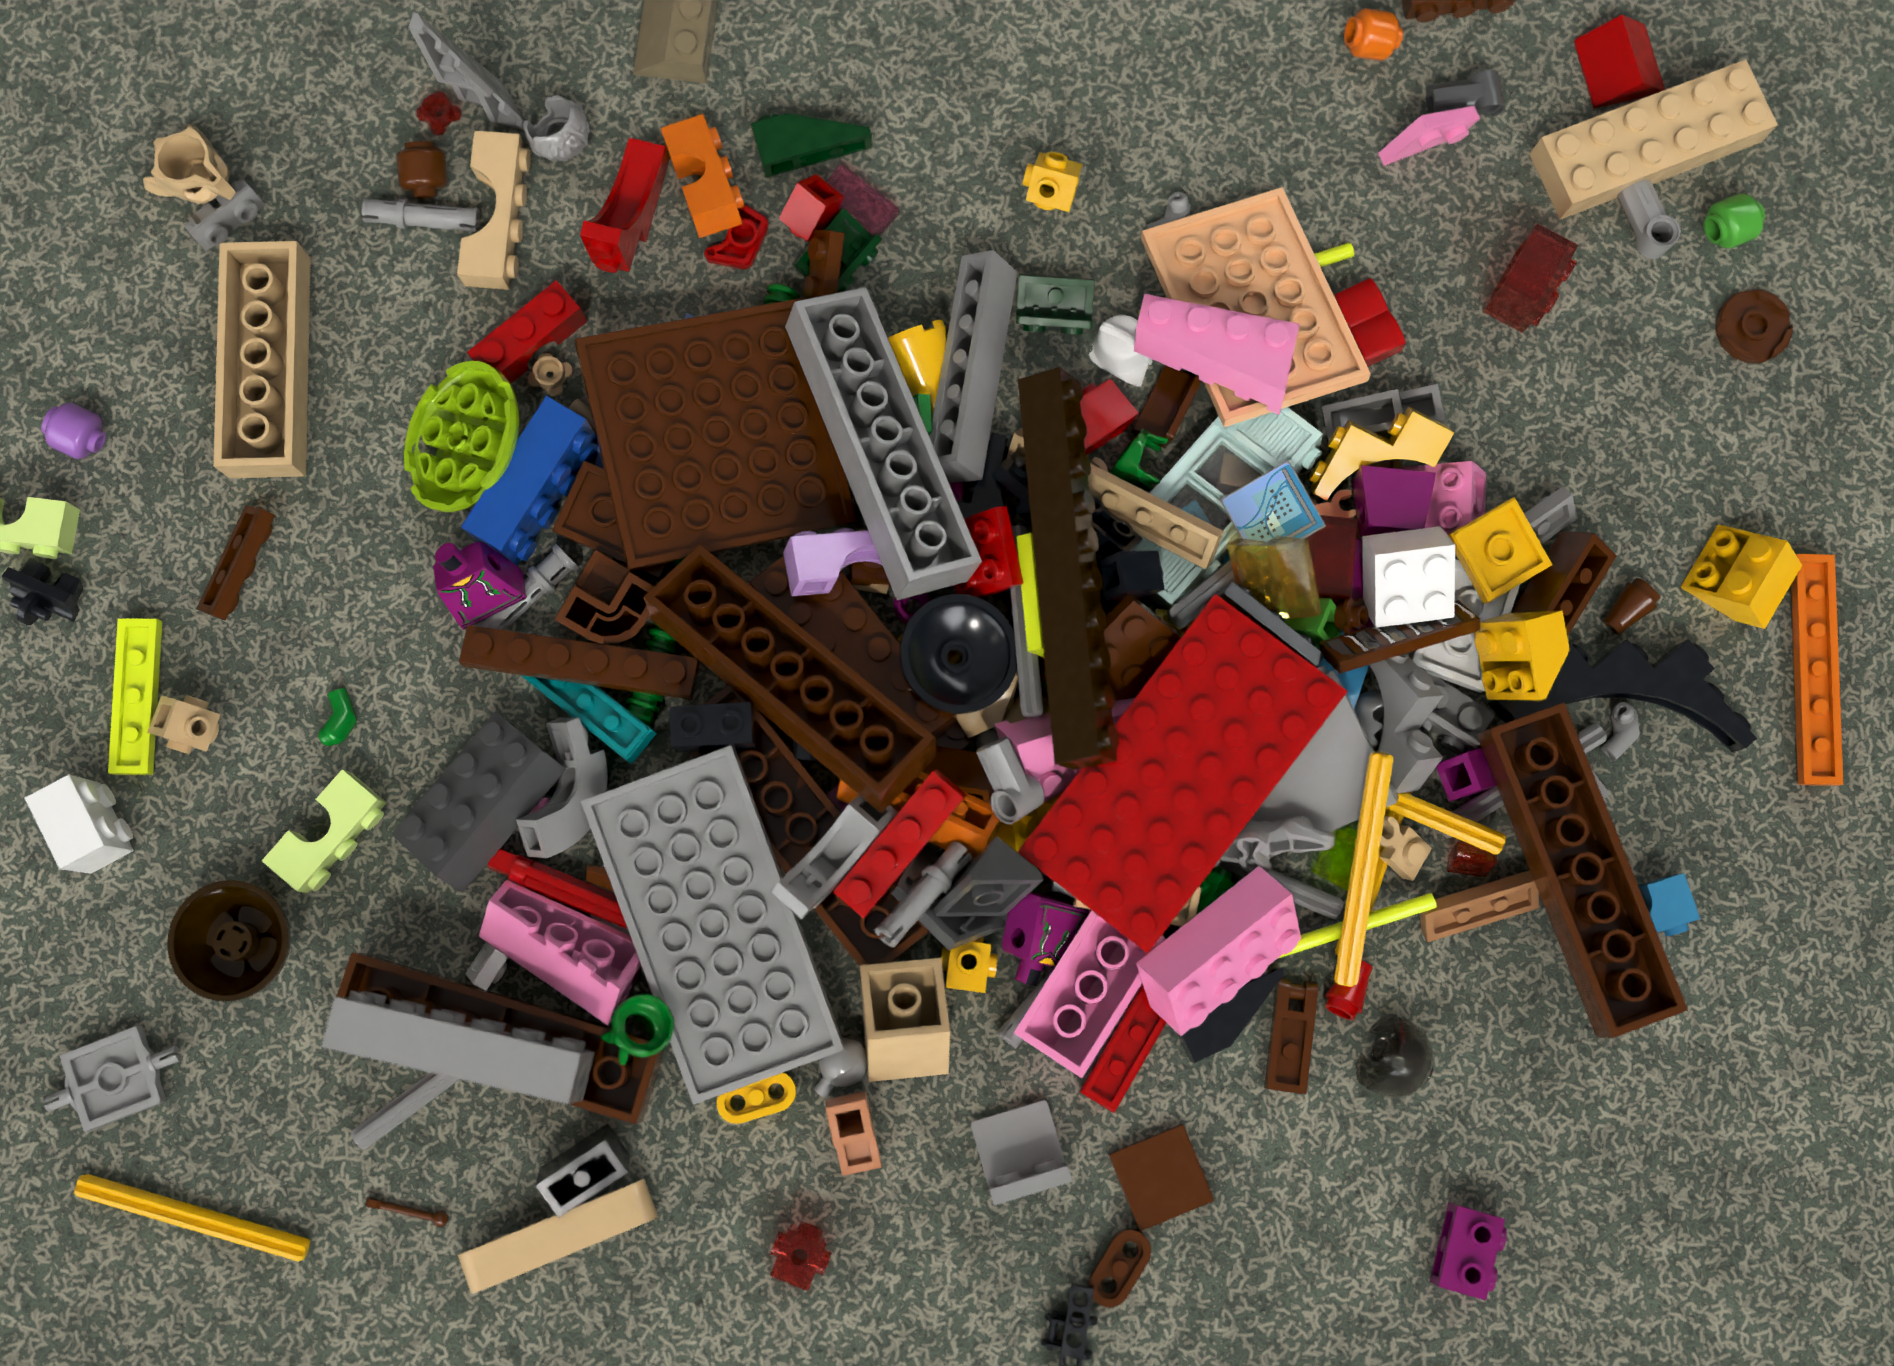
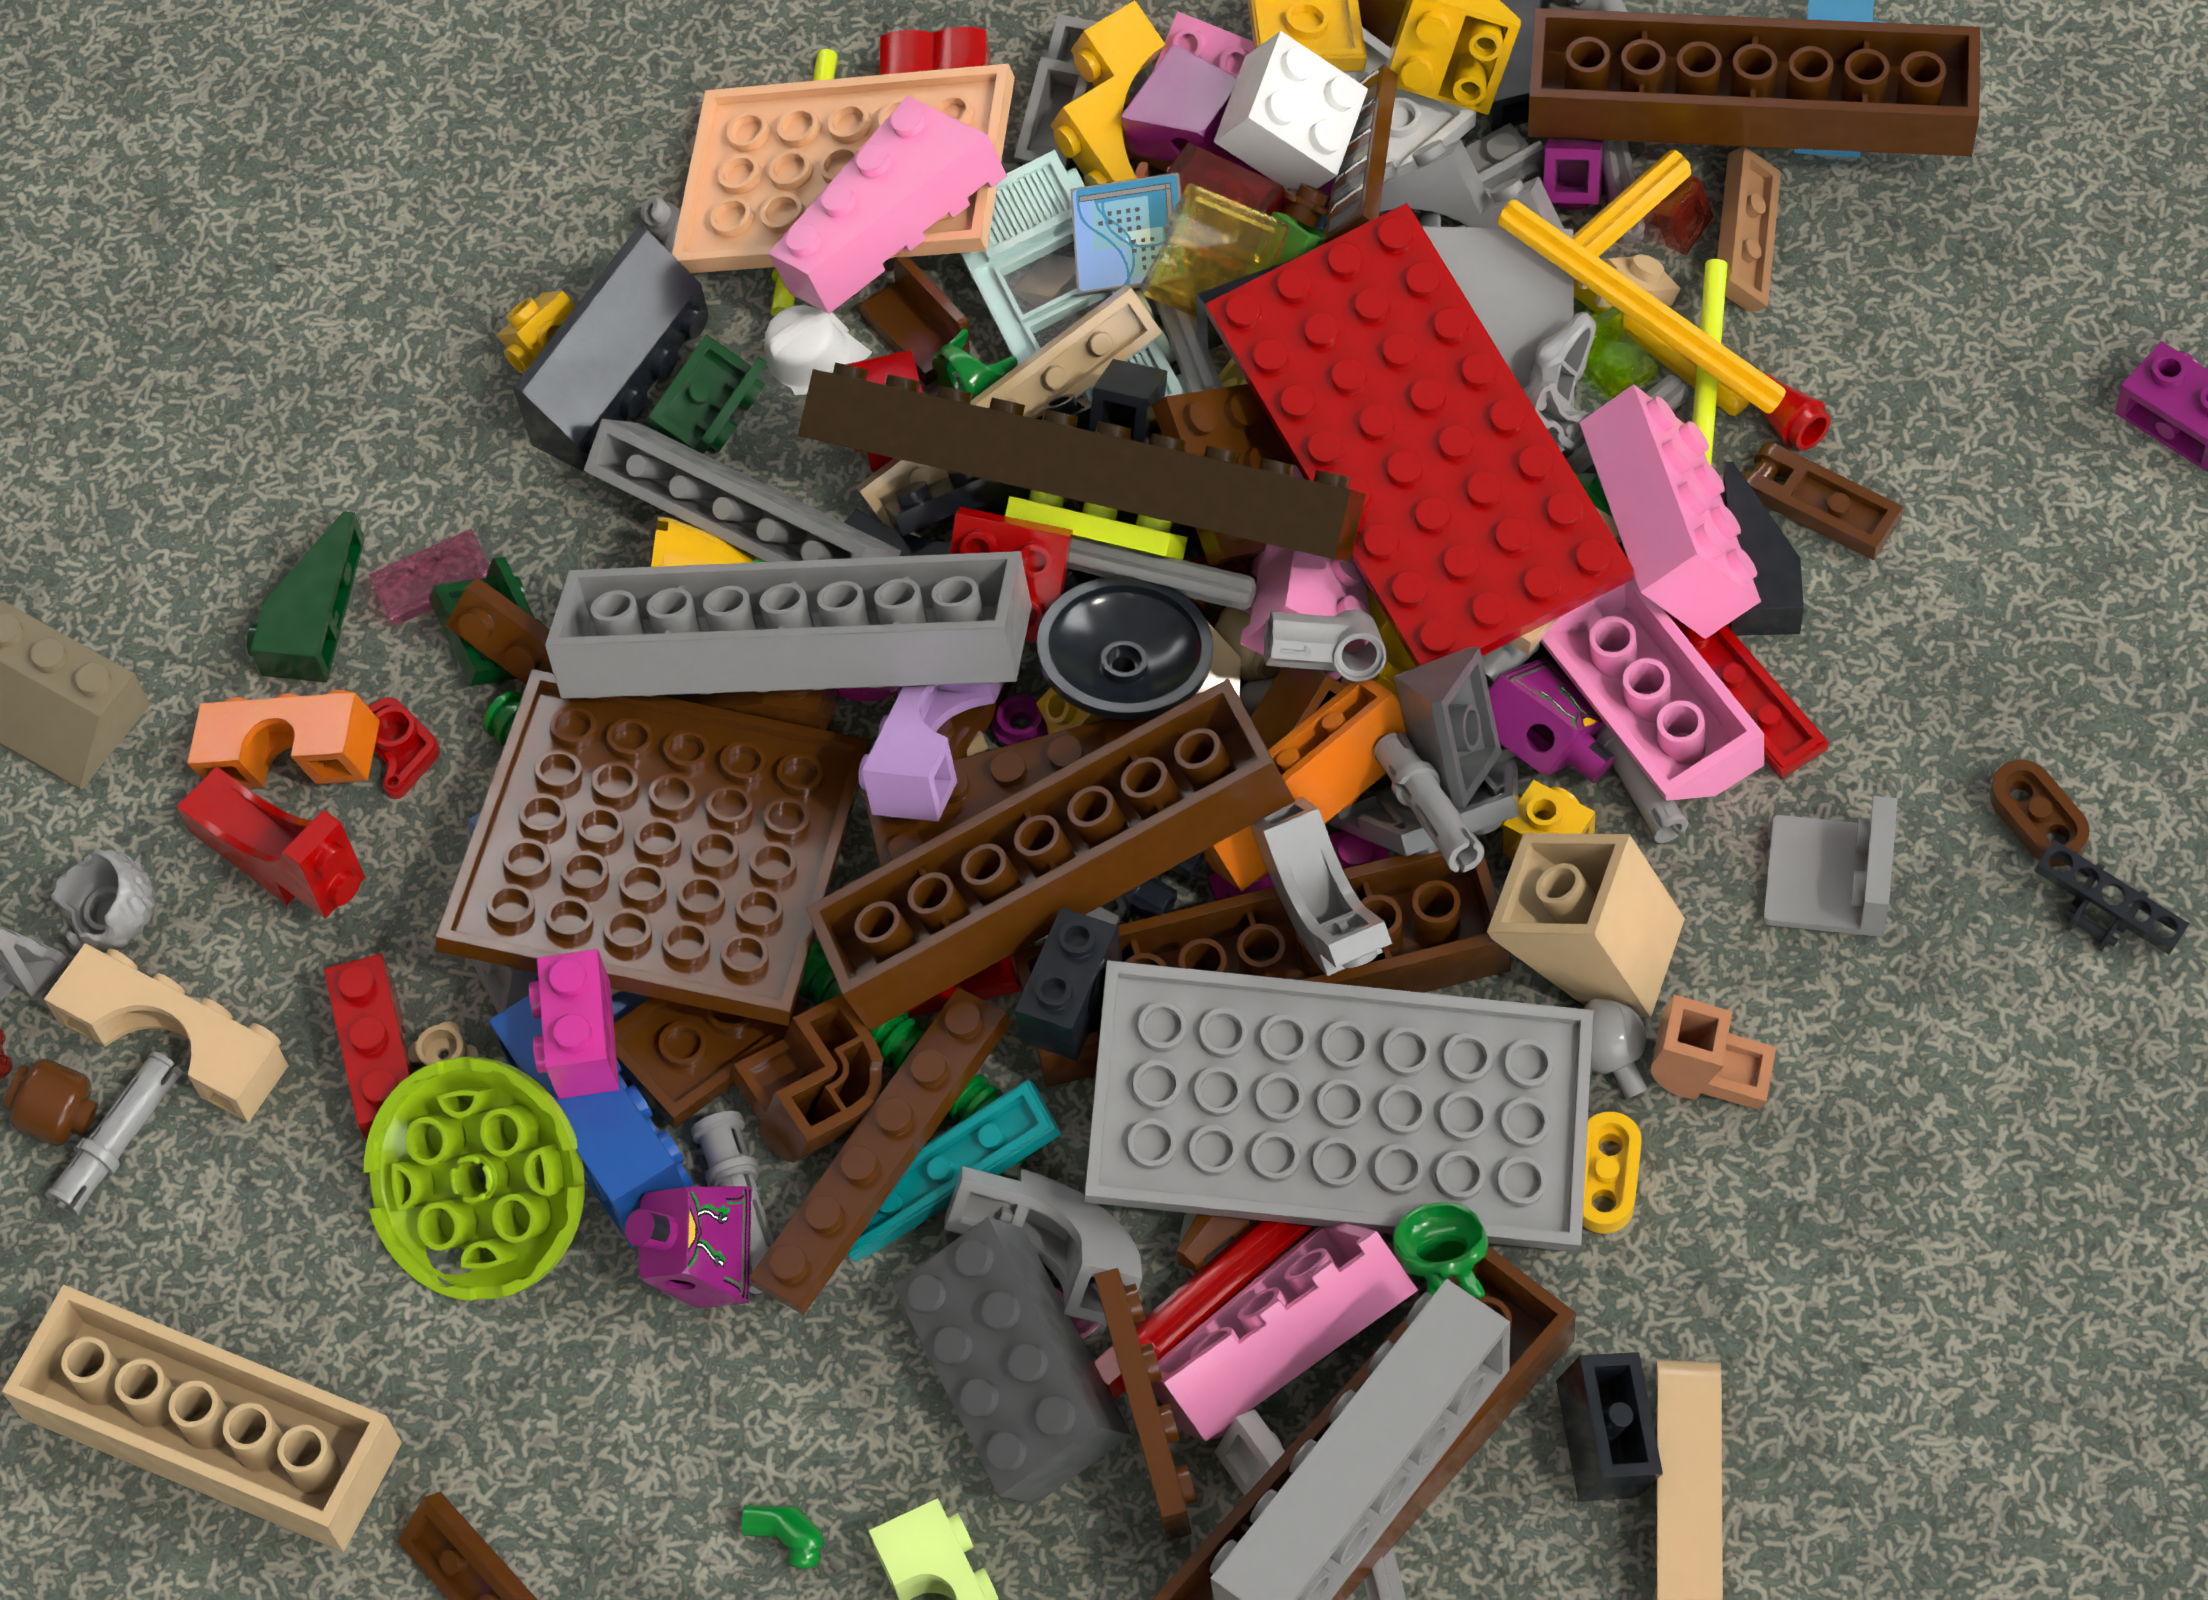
camera: 55 degrees left, 20 degrees down
(468, 896) = (1153, 1422): none -> reddish brown wing
(551, 450) = (576, 1024): none -> dark pink brick
(790, 1267) = (1854, 1191): clear red brick -> none
(810, 207) = (410, 628): brick -> none
(900, 843) = (1340, 789): red plate -> none
(1056, 229) = (611, 349): none -> slope
(1161, 1177) = (1939, 722): reddish brown tile -> none
(1398, 1058) = (1897, 377): clear smoke cylinder -> none

